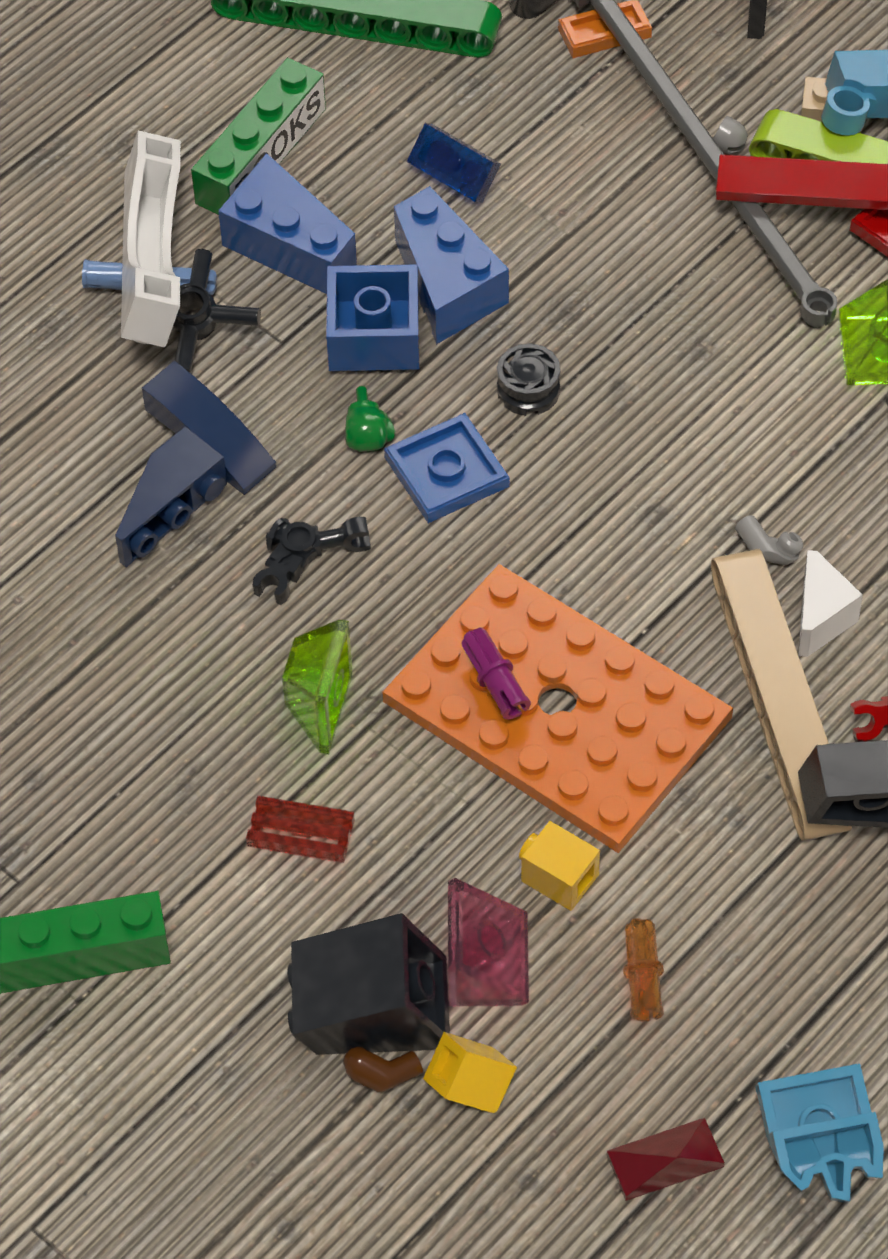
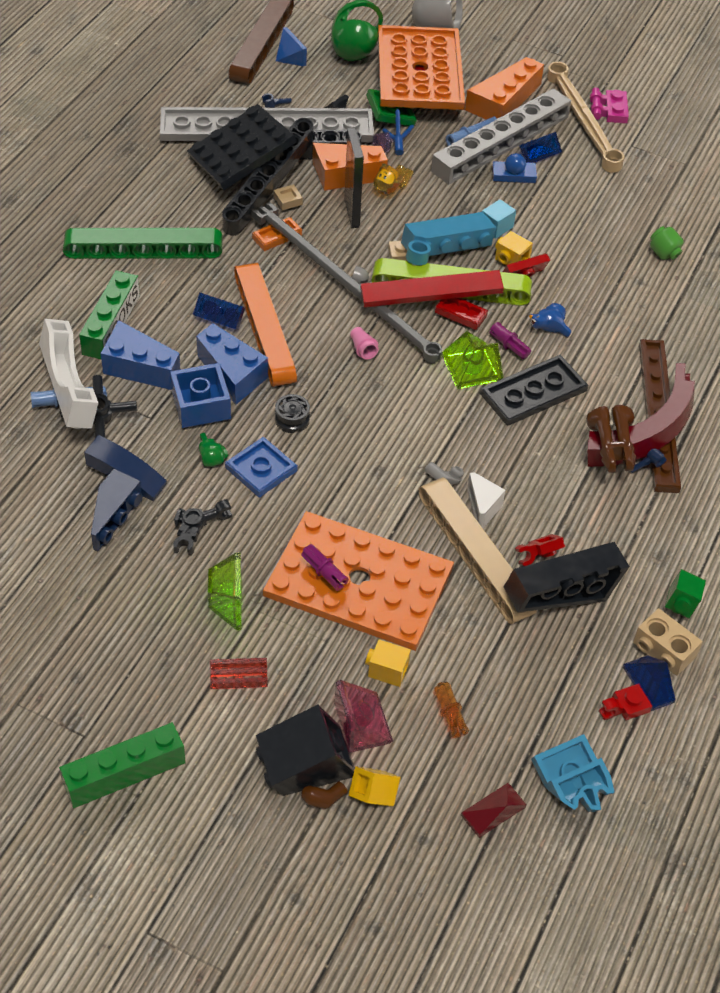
camera: 20 degrees left, 5 degrees down
(529, 202) = (265, 324): none -> orange beam
(698, 271) = (365, 345): none -> bright pink cone

